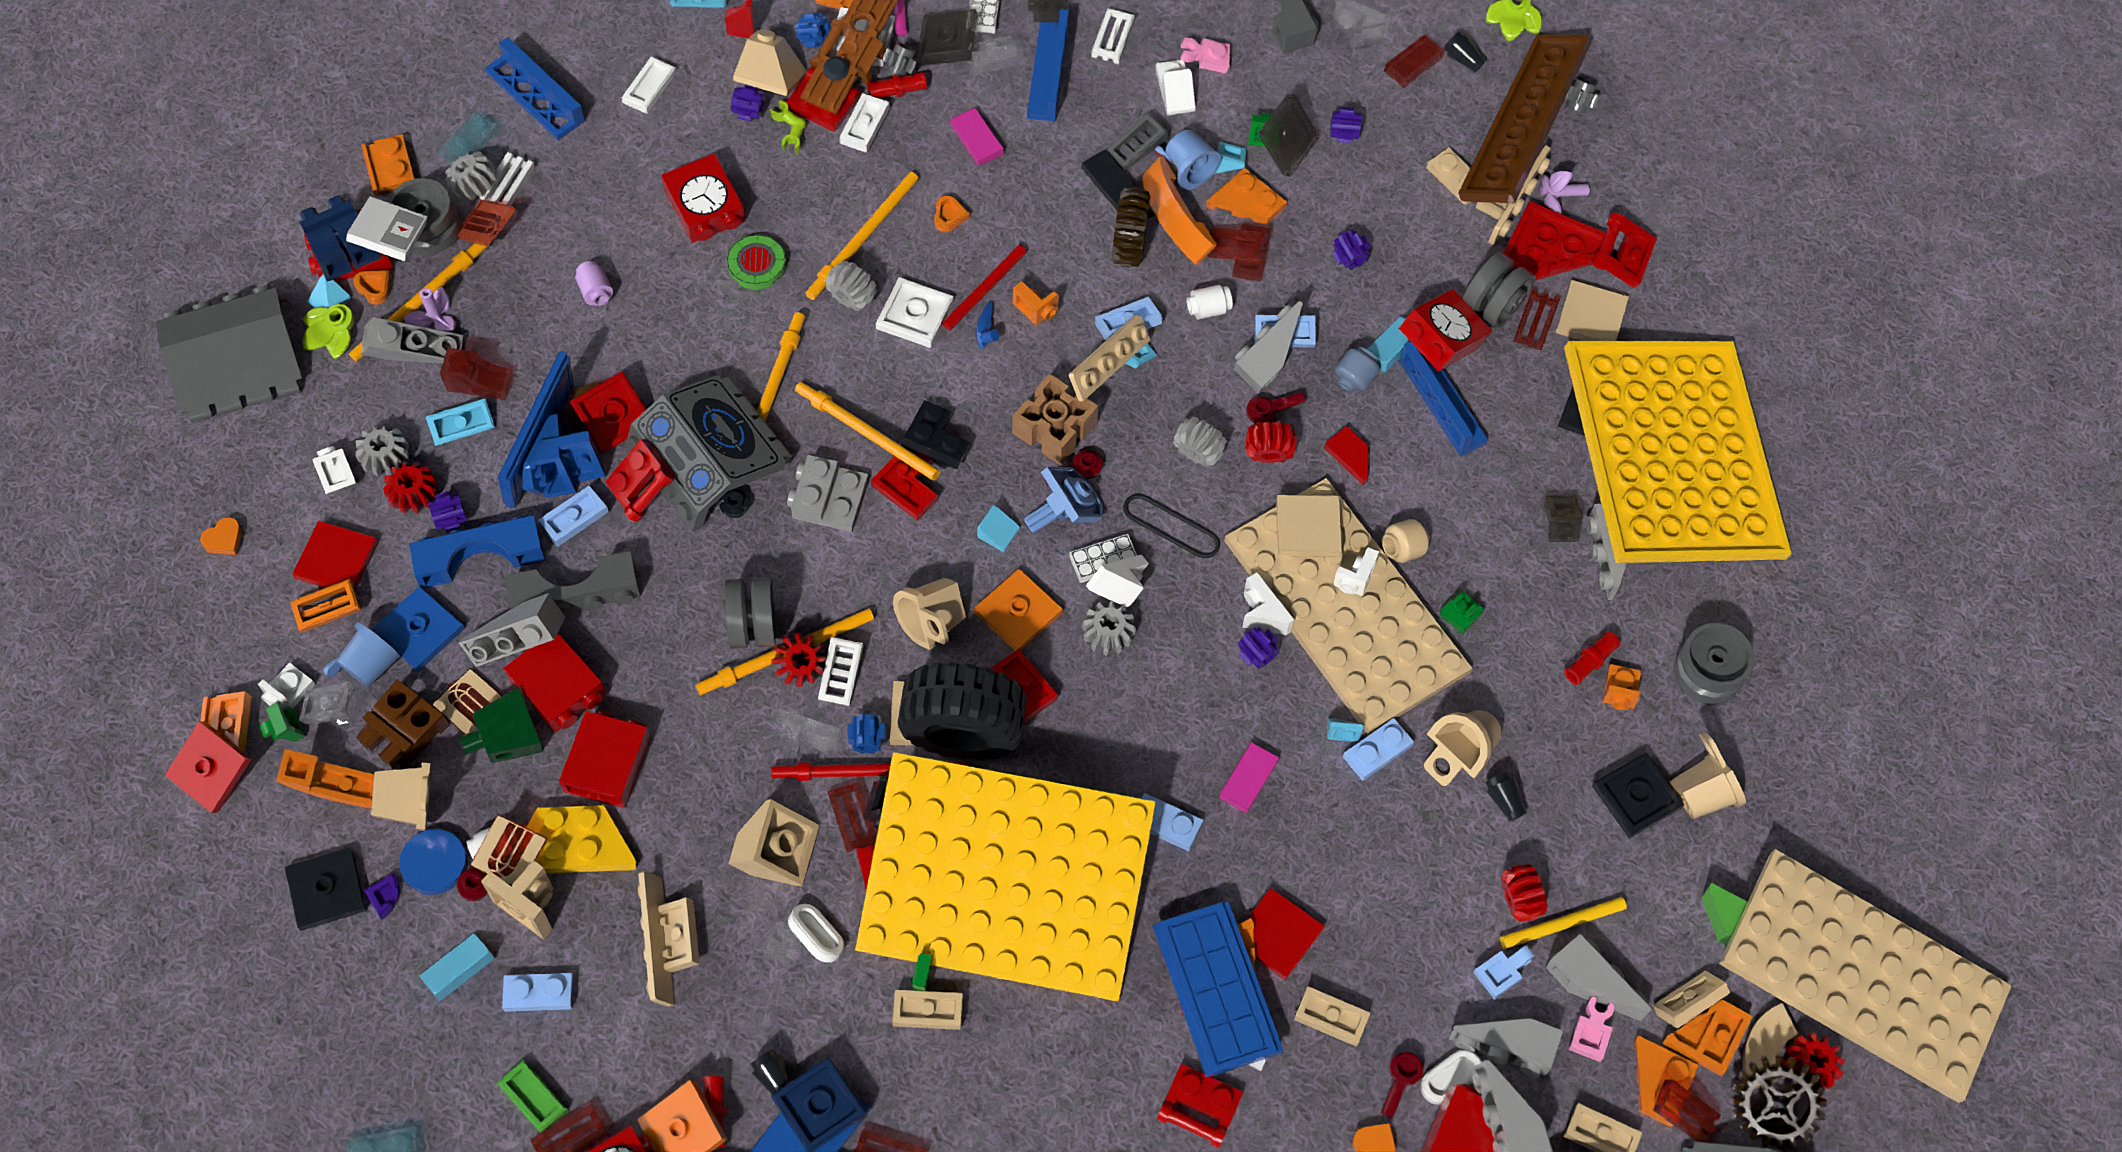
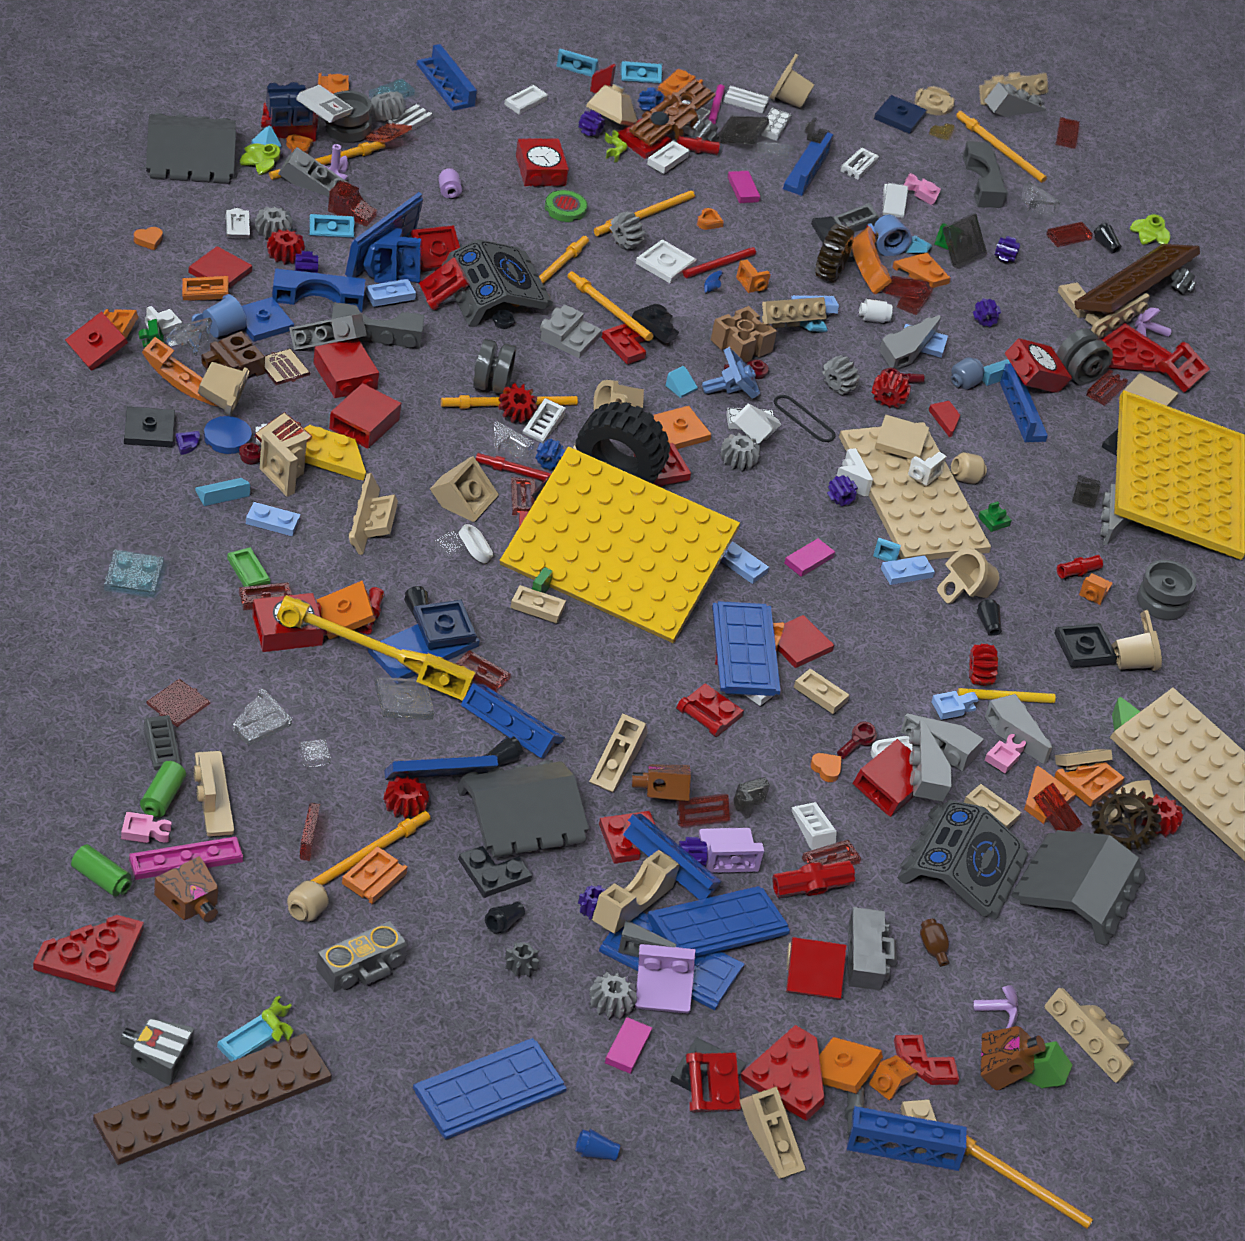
camera: 10 degrees right, 20 degrees down
(503, 730) = (302, 380): dark green torso -> none

